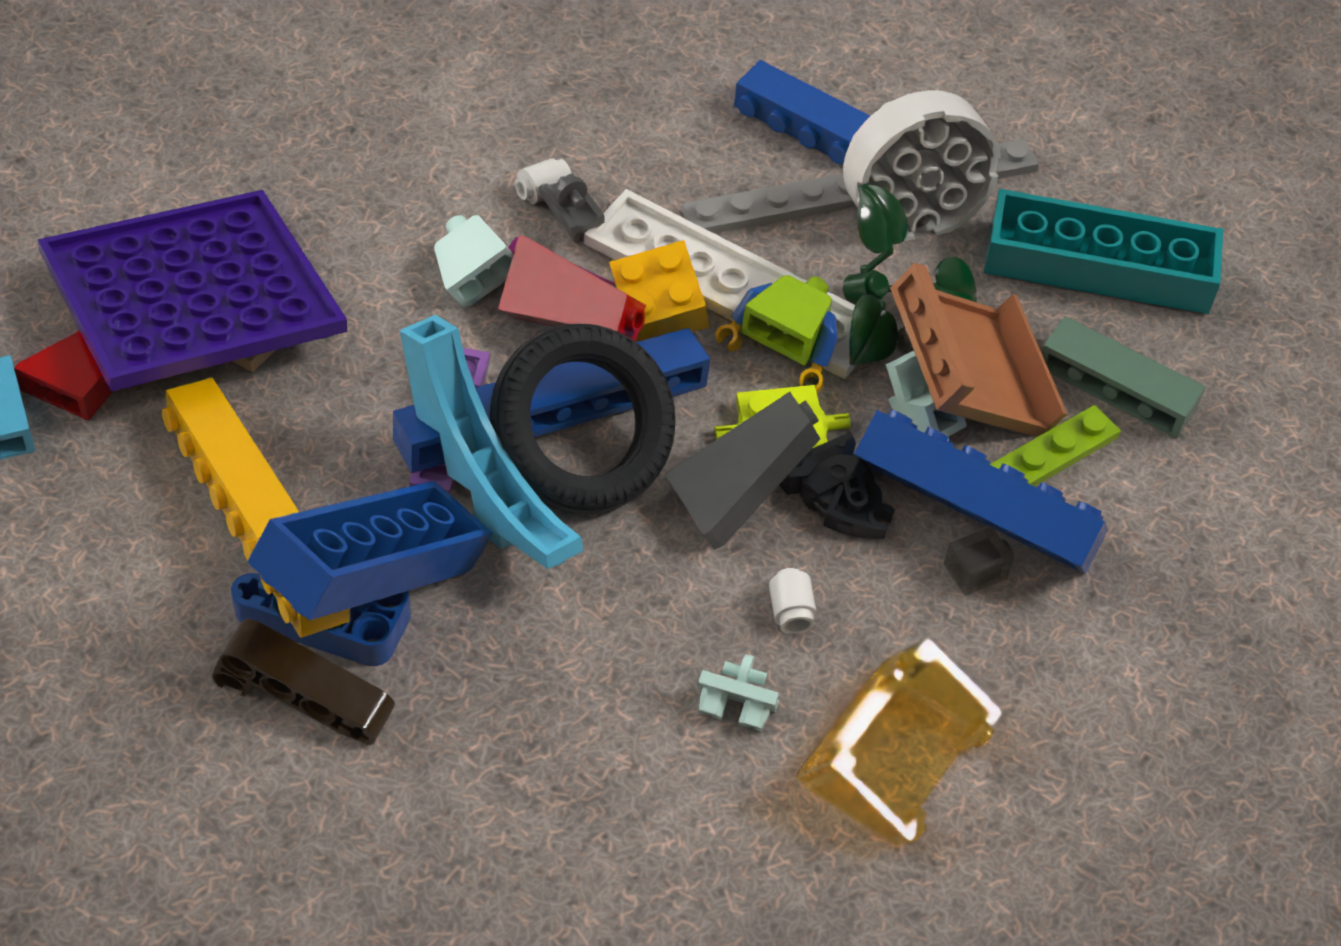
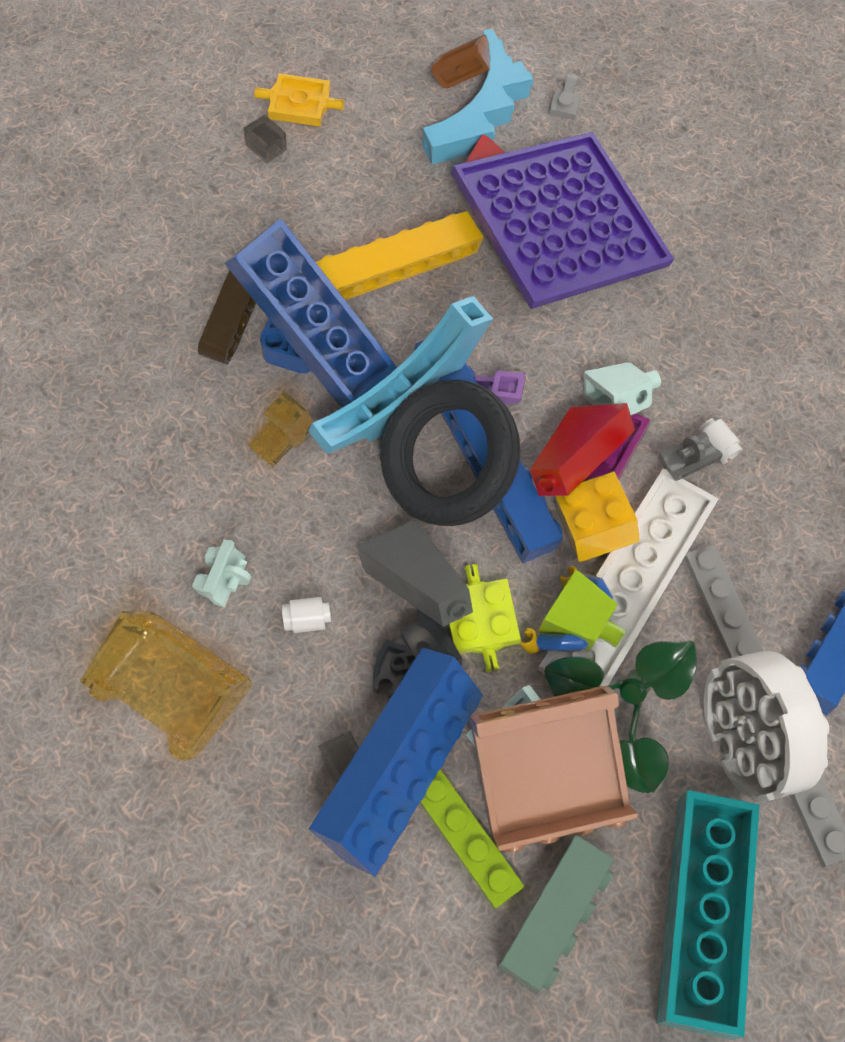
camera: 90 degrees right, 10 degrees up
(516, 620) = (286, 429): none -> clear yellow brick

